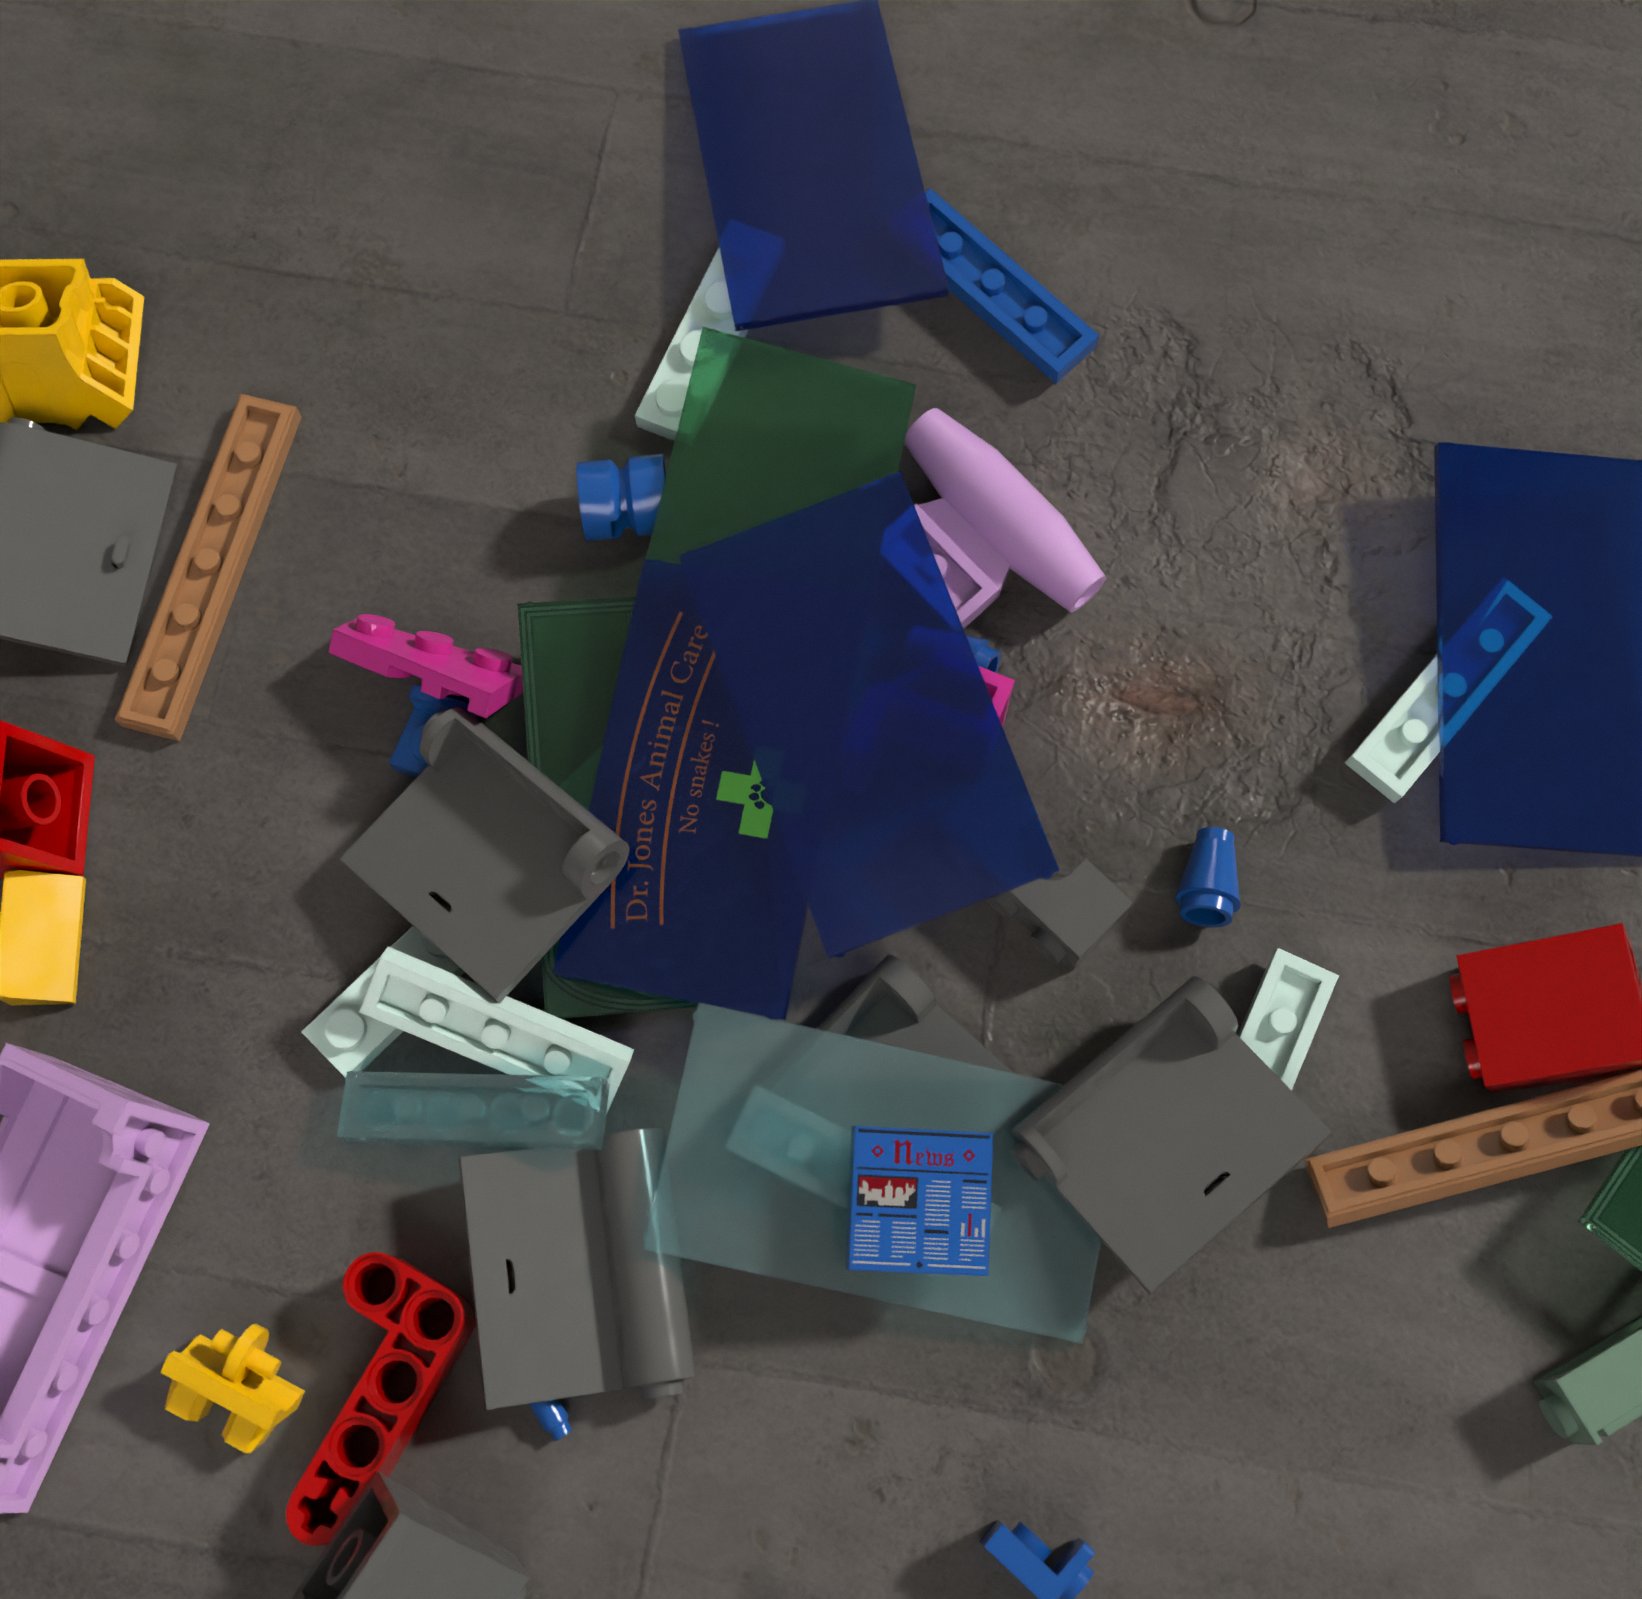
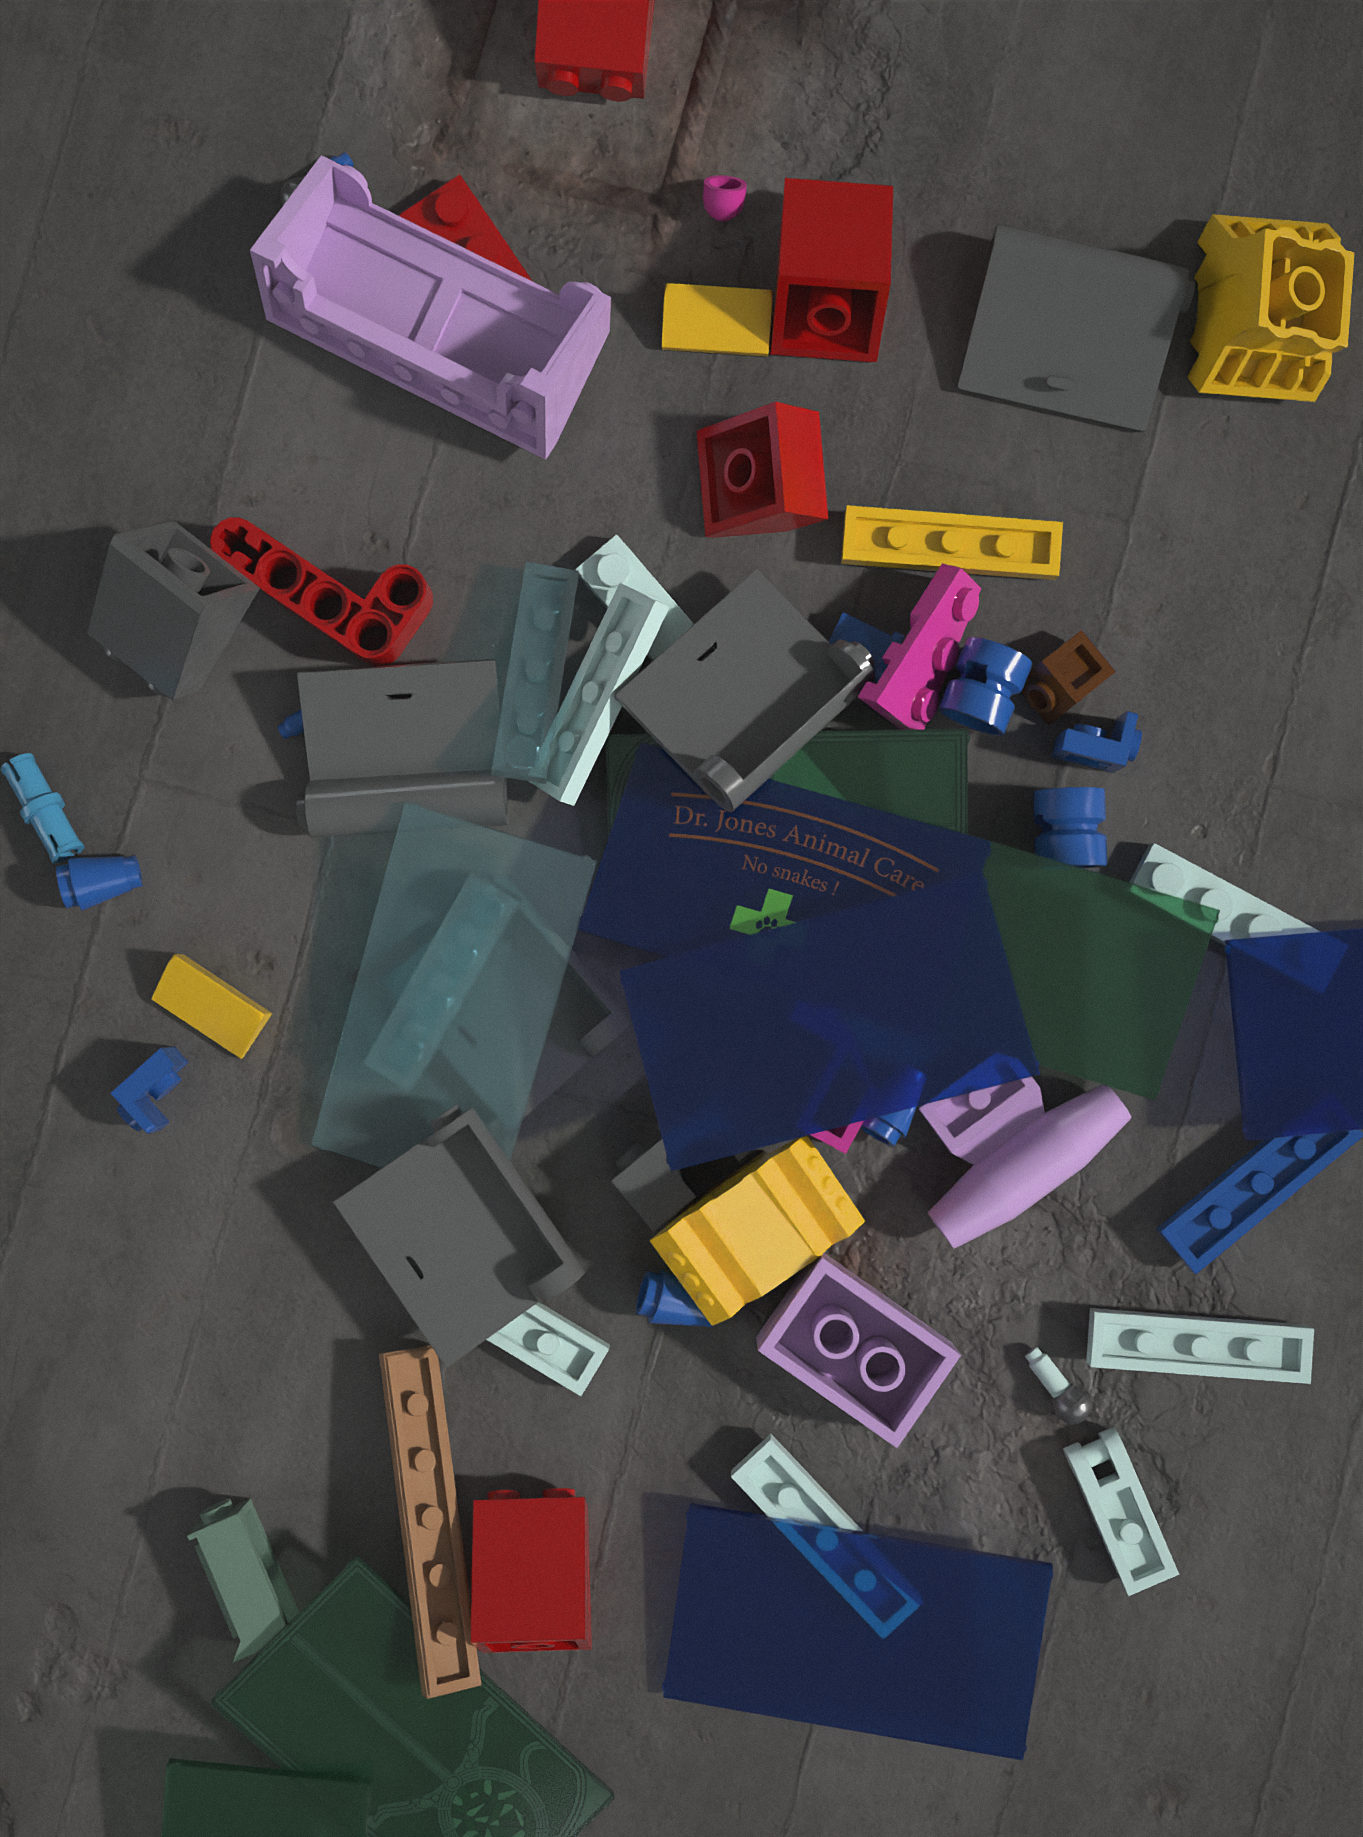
camera: 95 degrees right, 15 degrees up
(208, 568) = (1046, 461): medium nougat tile -> none
(224, 867) = (762, 472): none -> red slope
(236, 1377) = (343, 478): yellow hips -> none
(301, 668) = (966, 541): none -> yellow plate
(457, 520) = (1065, 677): none -> reddish brown bracket
(458, 596) = (985, 684): none -> blue wheel
(532, 476) = (1090, 748): none -> blue bracket
(919, 1201) = (416, 1025): blue tile -> none
(922, 1495) = (210, 1005): none -> yellow slope
(1112, 787) = (757, 1228): none -> yellow slope
(1175, 330) = (1200, 1345): none -> light aqua plate
(1231, 669) = (857, 1348): none -> lavender brick
(1256, 451) = (1069, 1401): none -> piece
(1365, 390) = (1122, 1513): none -> light aqua plate

